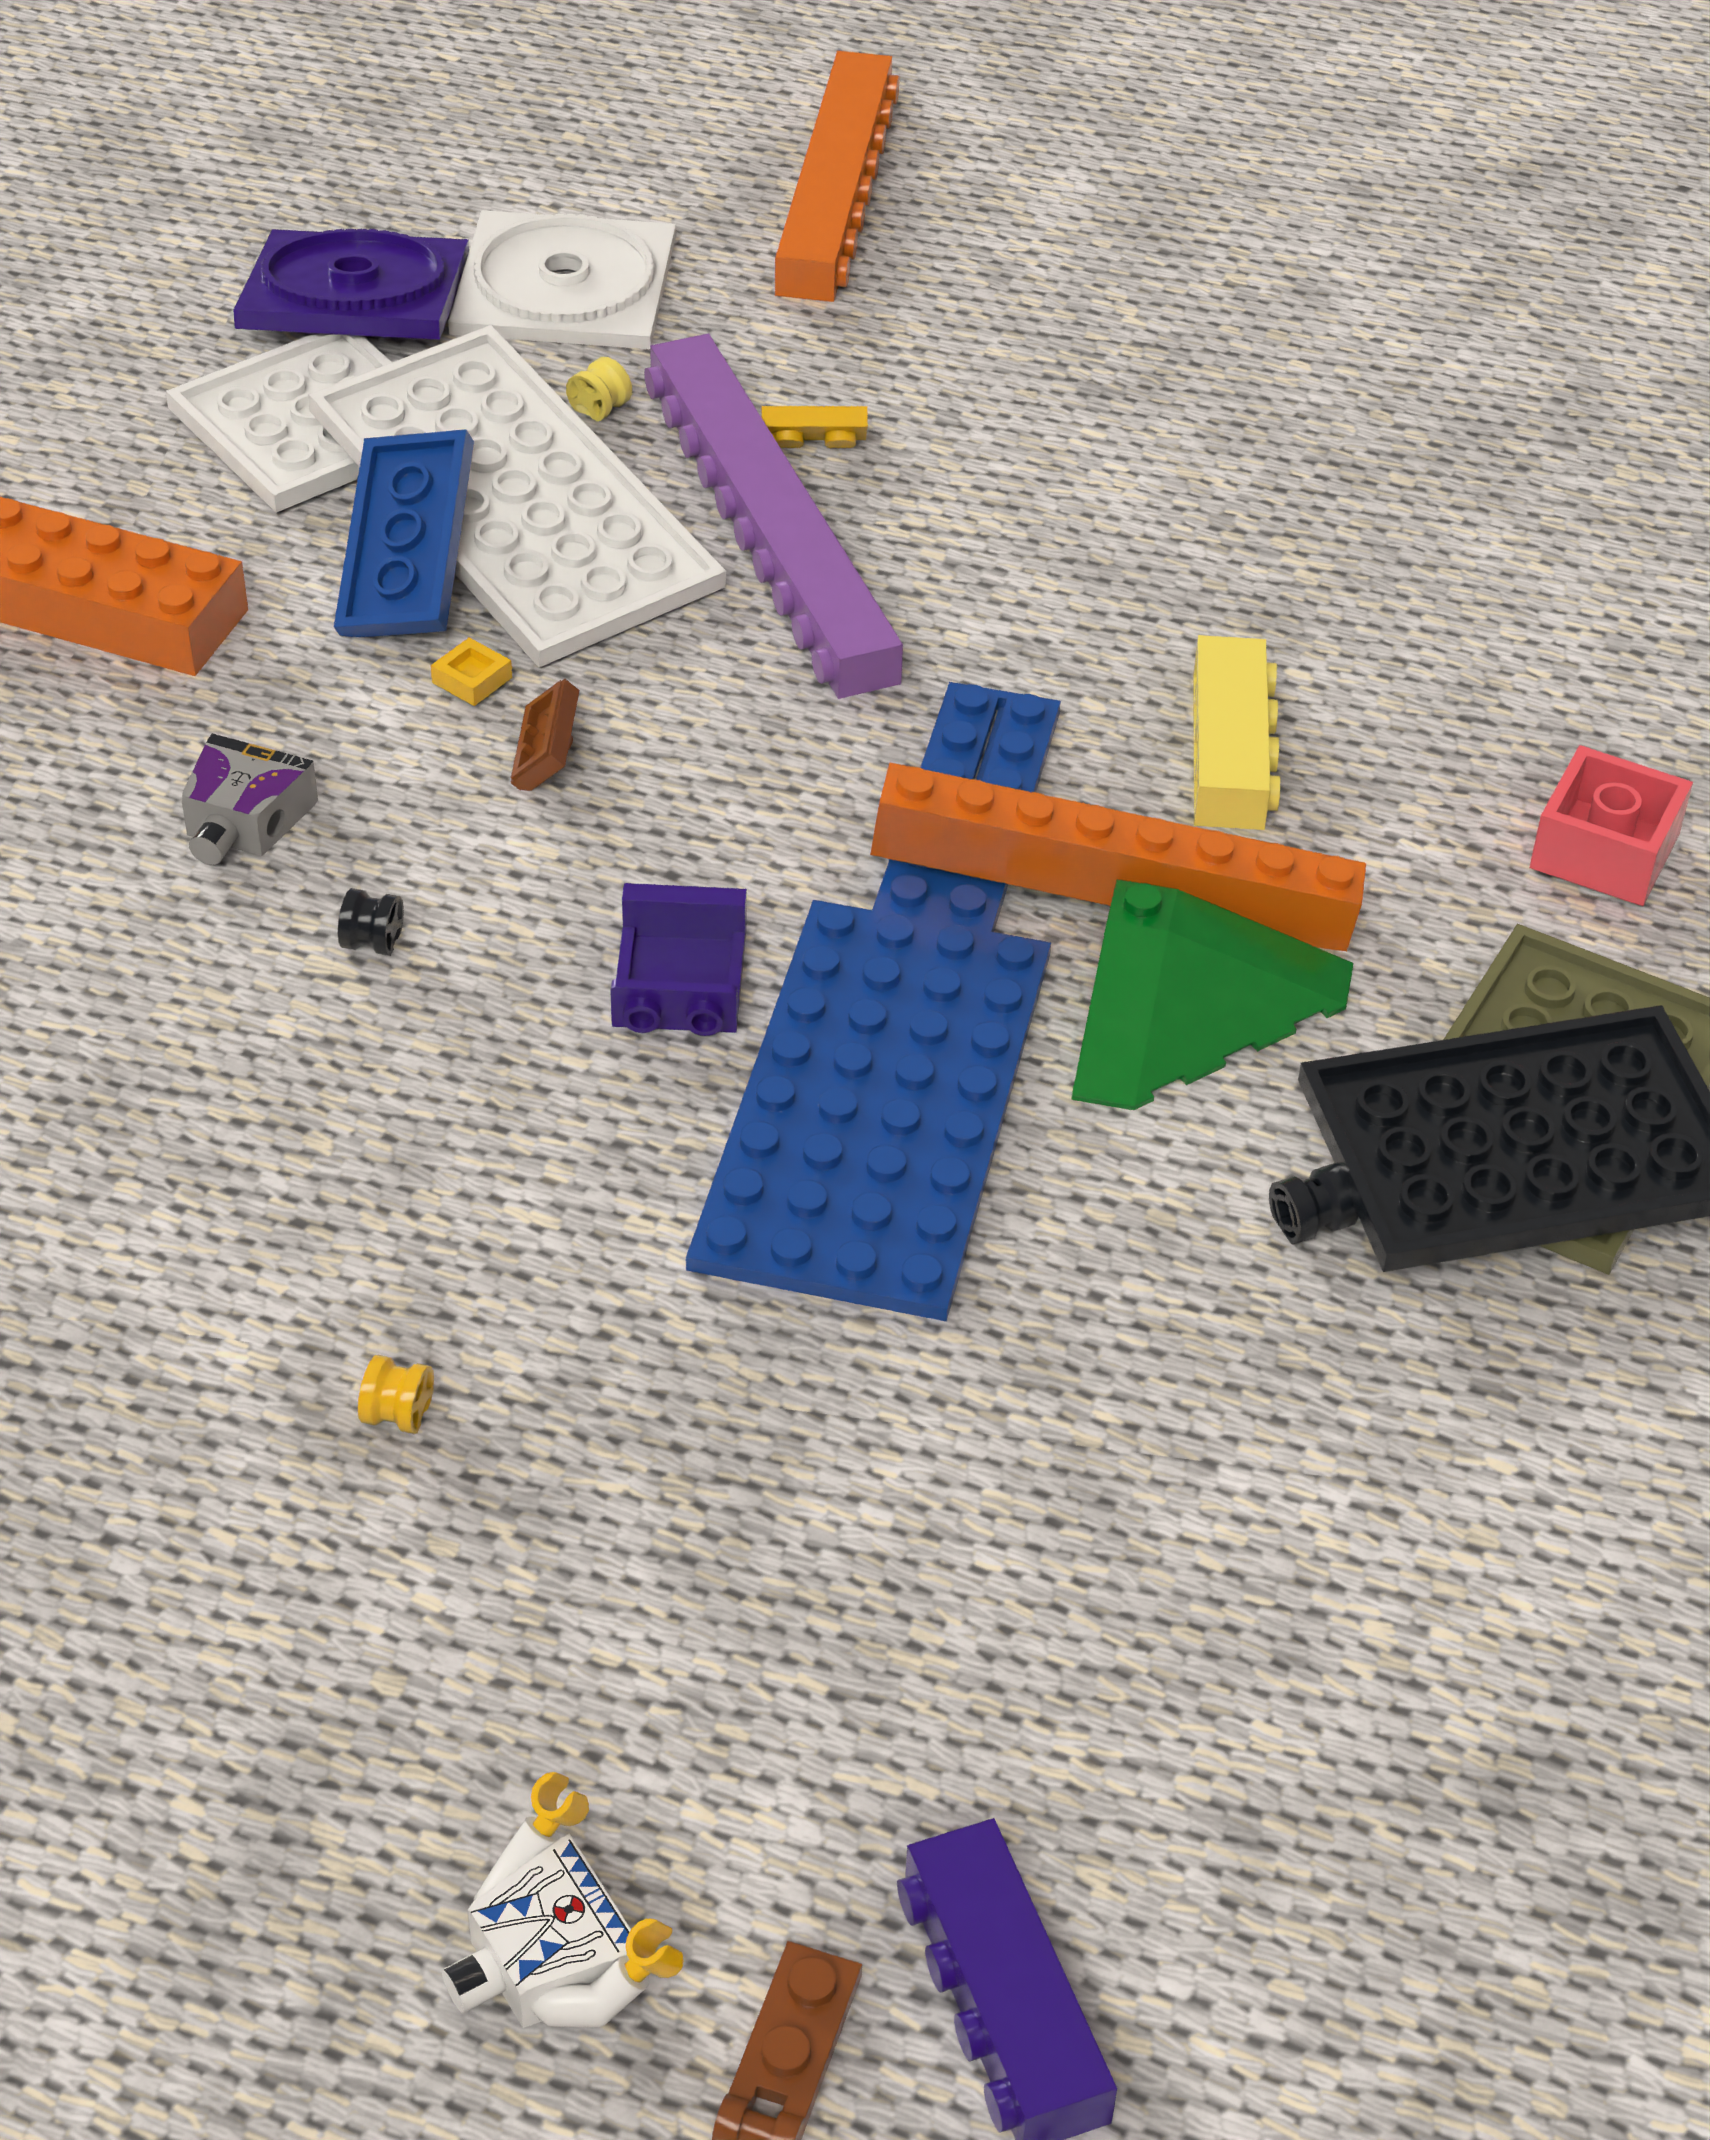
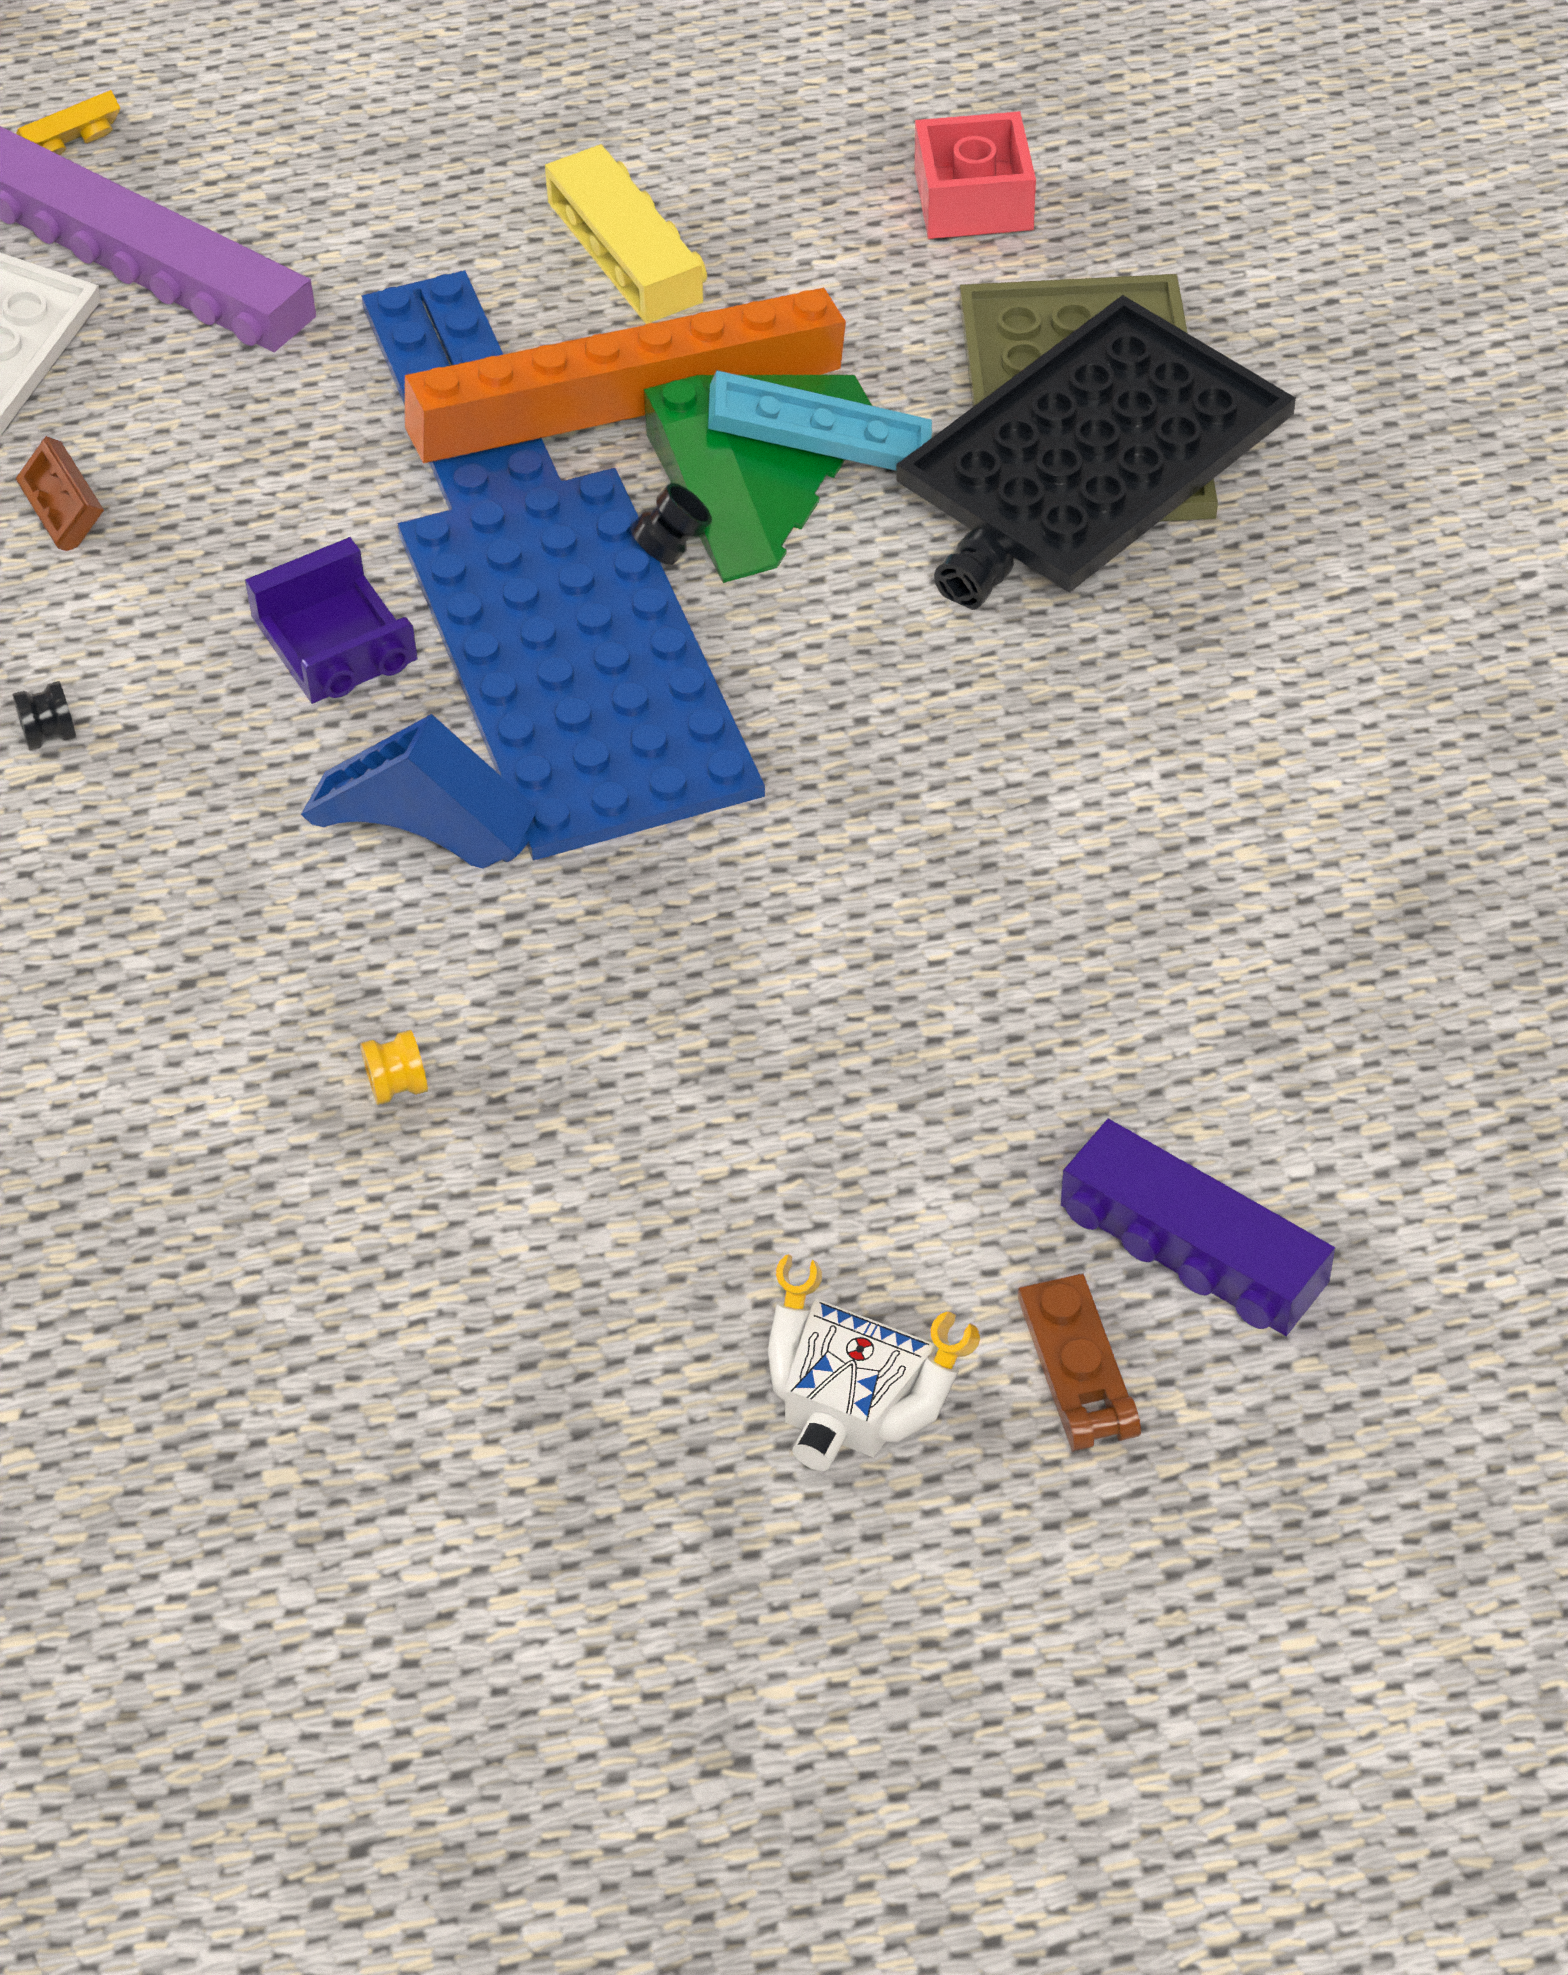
camera: 30 degrees left, 5 degrees up
(627, 1159) = (431, 787): none -> blue arch
(1057, 1015) = (671, 523): none -> black wheel
(1257, 984) = (814, 421): none -> medium azure plate

